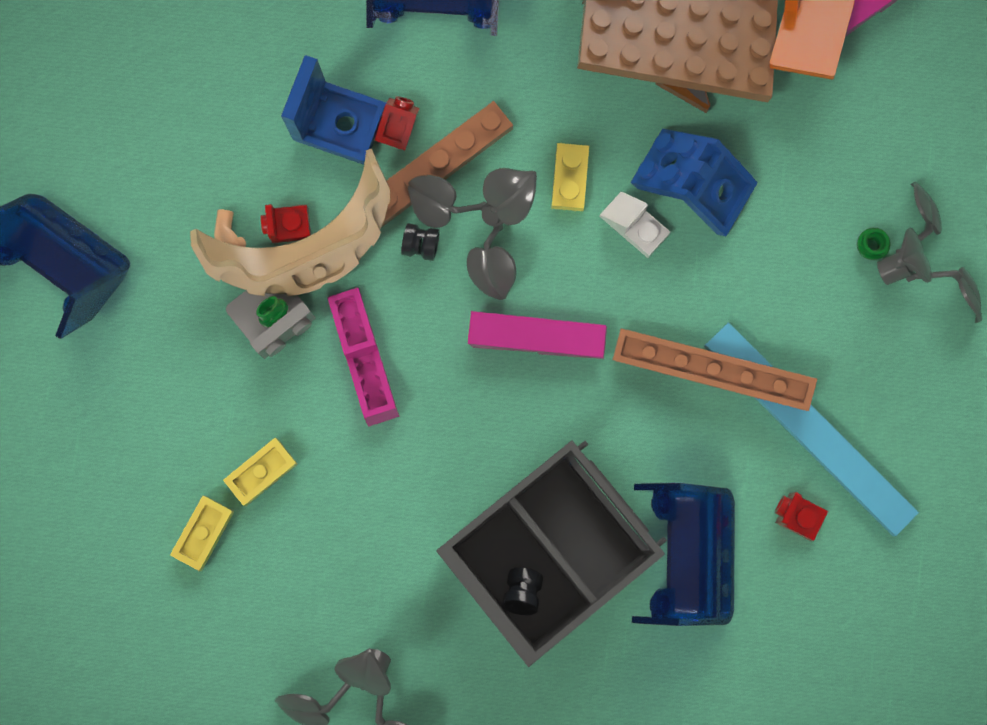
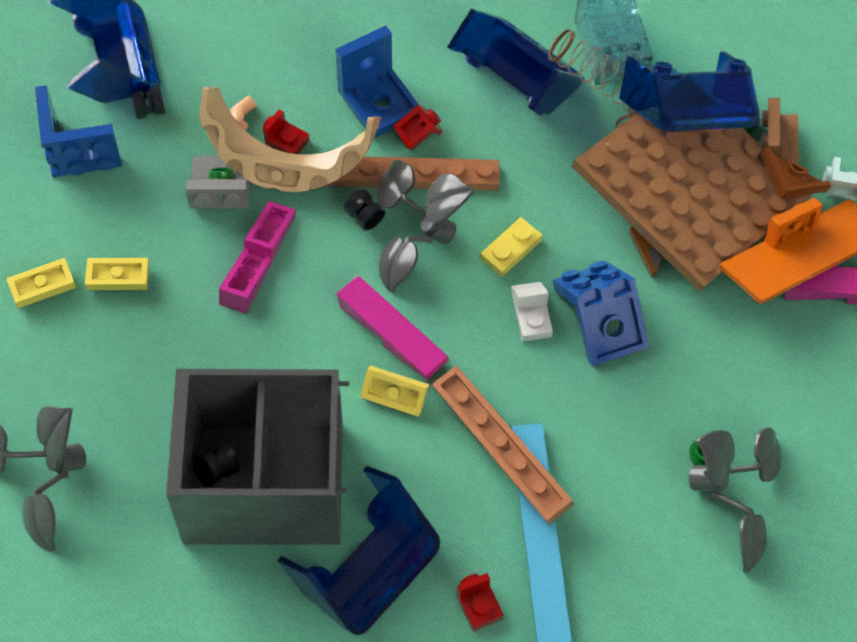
camera: 35 degrees right, 20 degrees down
(117, 395) = (77, 149): none -> blue bracket
(139, 280) = (154, 100): none -> black wheel
(587, 390) = (394, 391): none -> light yellow plate

